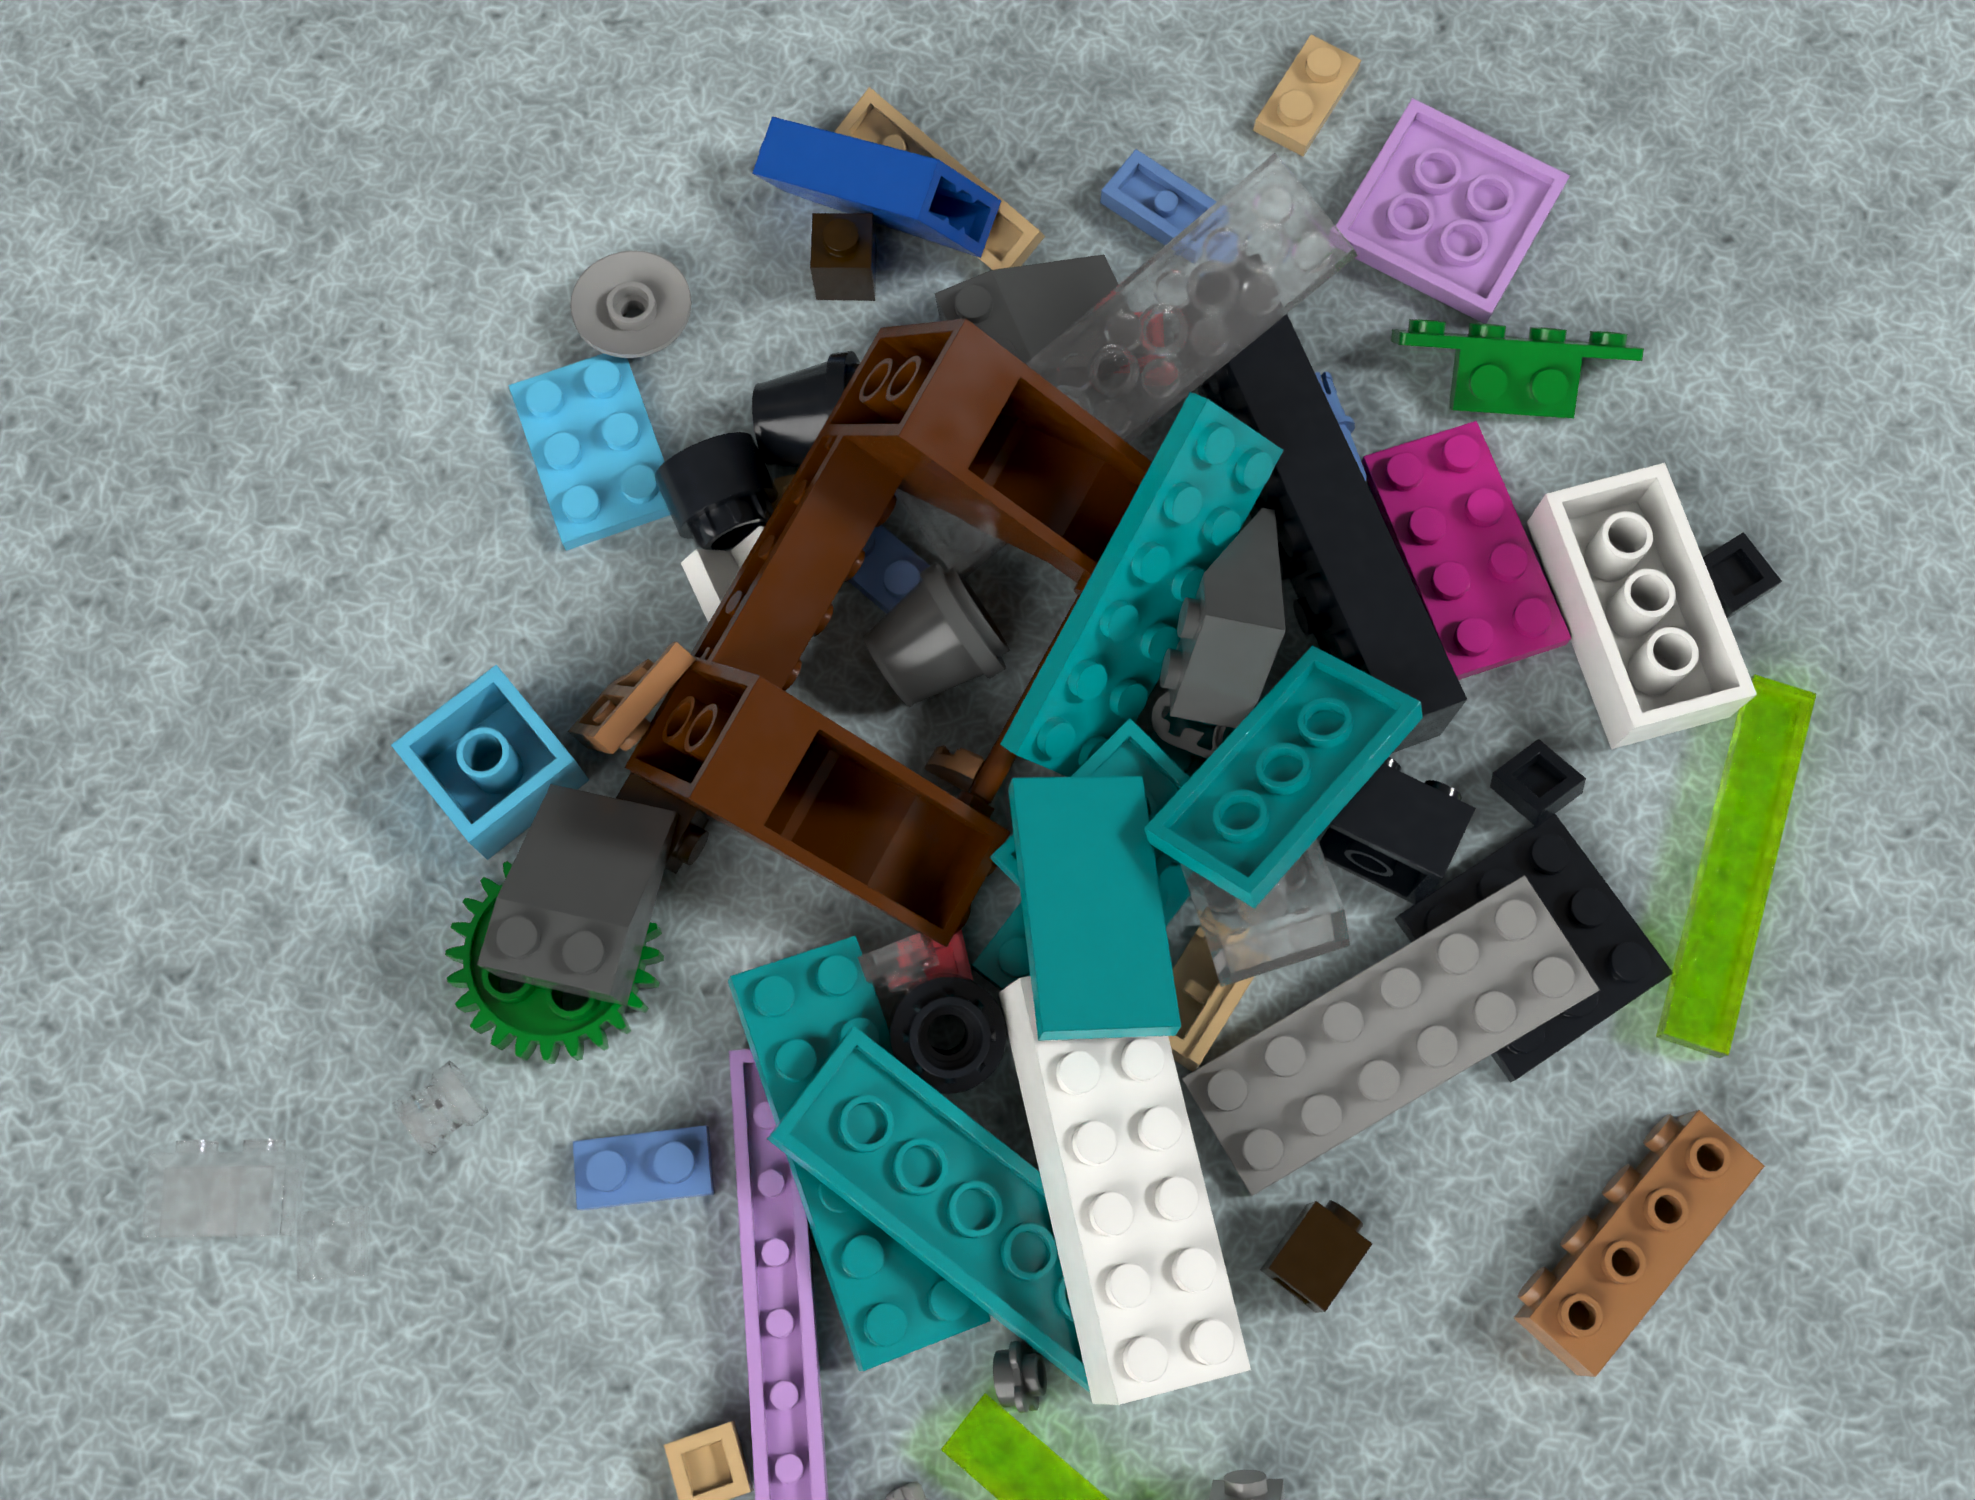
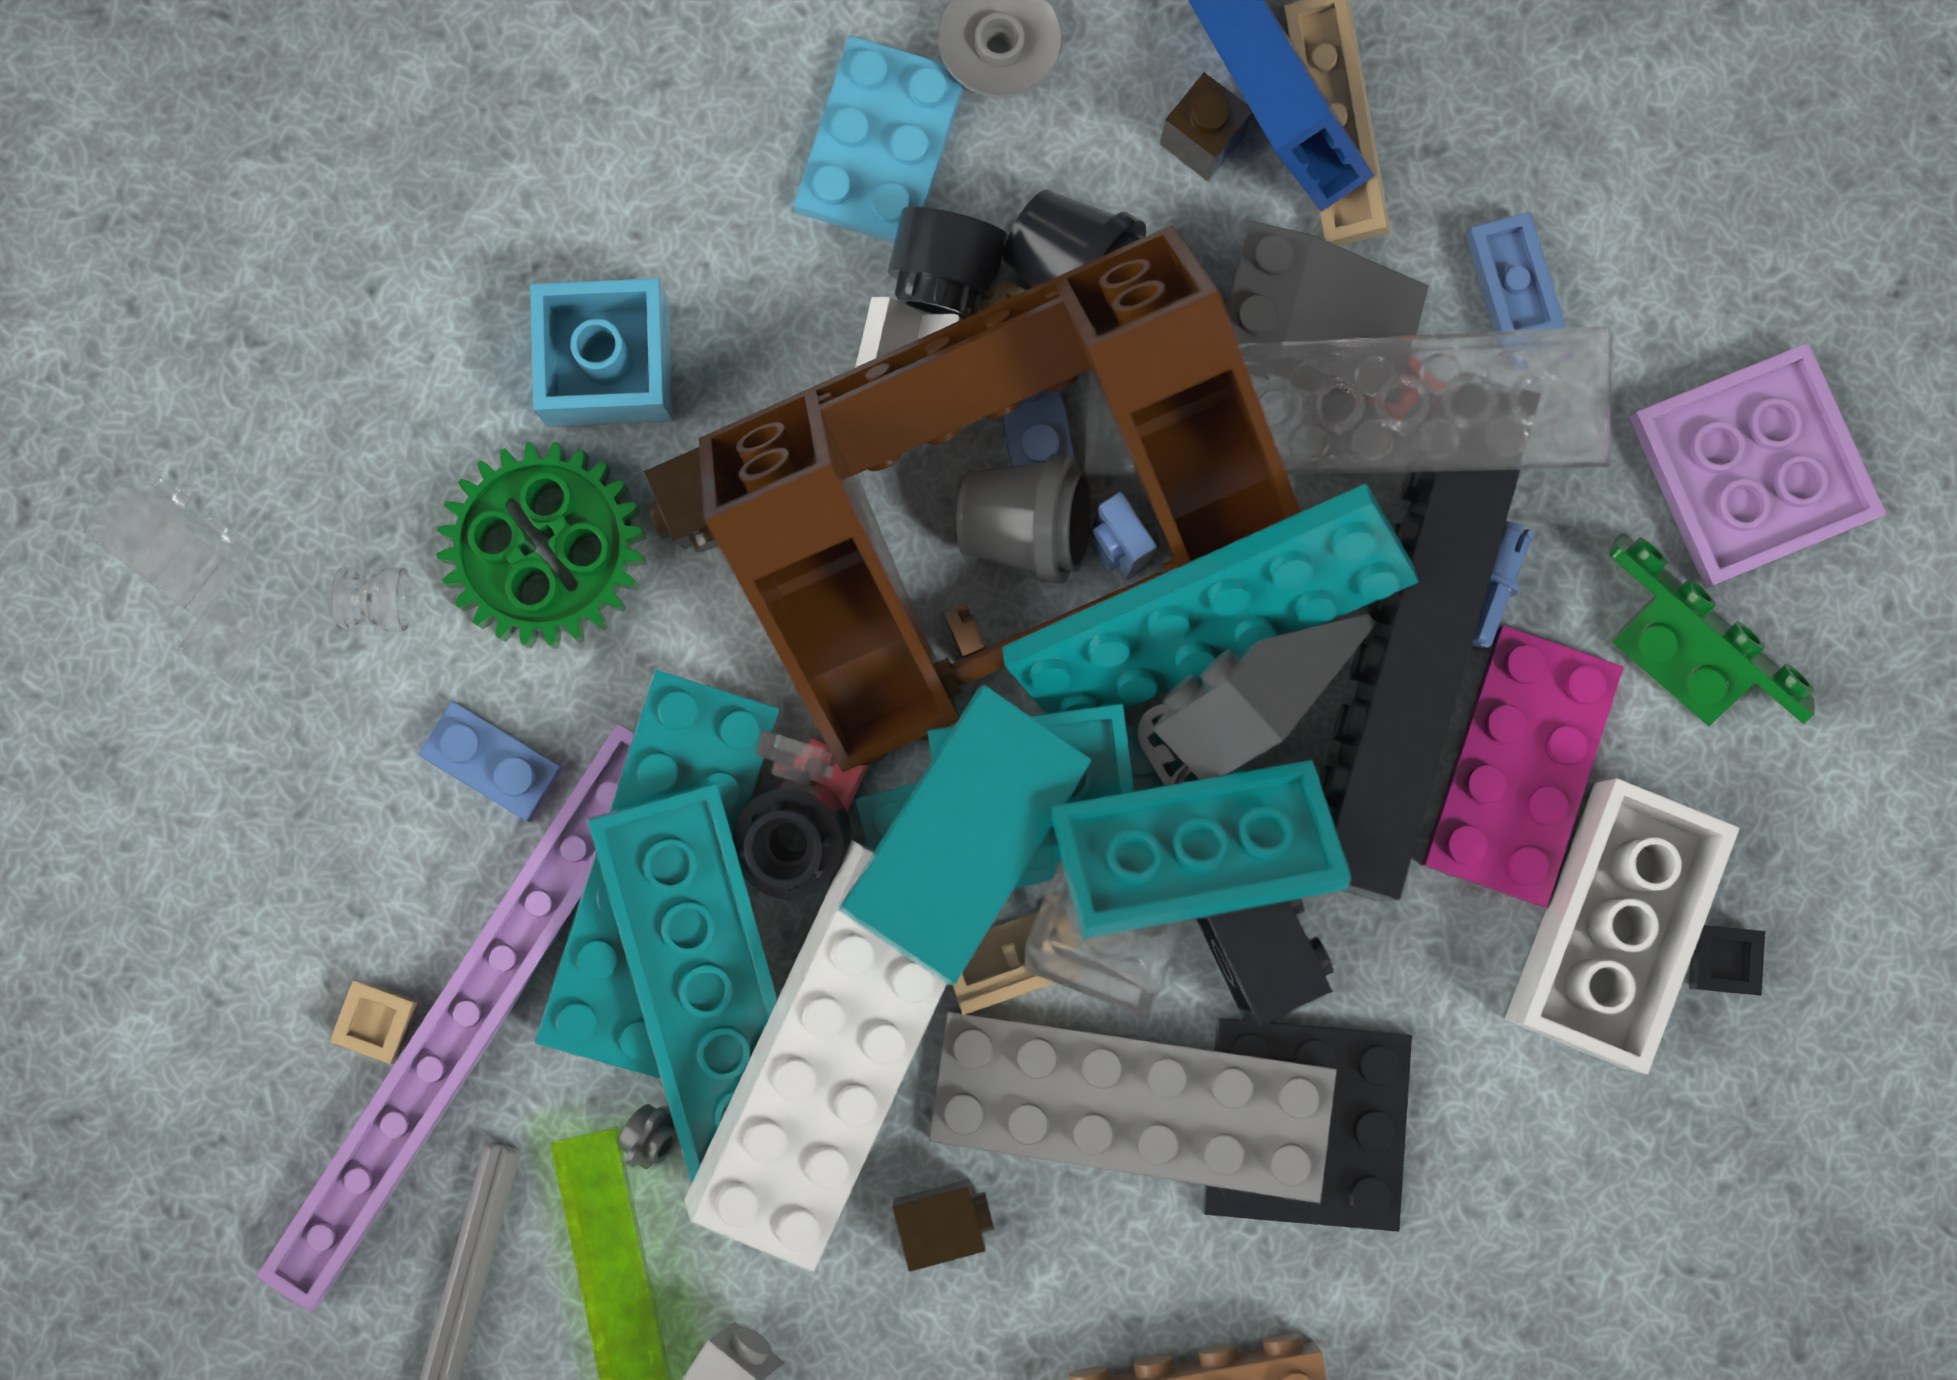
camera: 35 degrees right, 10 degrees up
(580, 895) = (587, 518): dark grey slope -> none
(620, 710) = (738, 384): medium nougat wing -> none
(1025, 597) = (1121, 538): none -> medium blue plate
(1307, 95) = (1723, 269): tan plate -> none
(1537, 782) = (1418, 1001): black plate -> none
(1736, 869) = (1525, 1188): clear neon green plate -> none

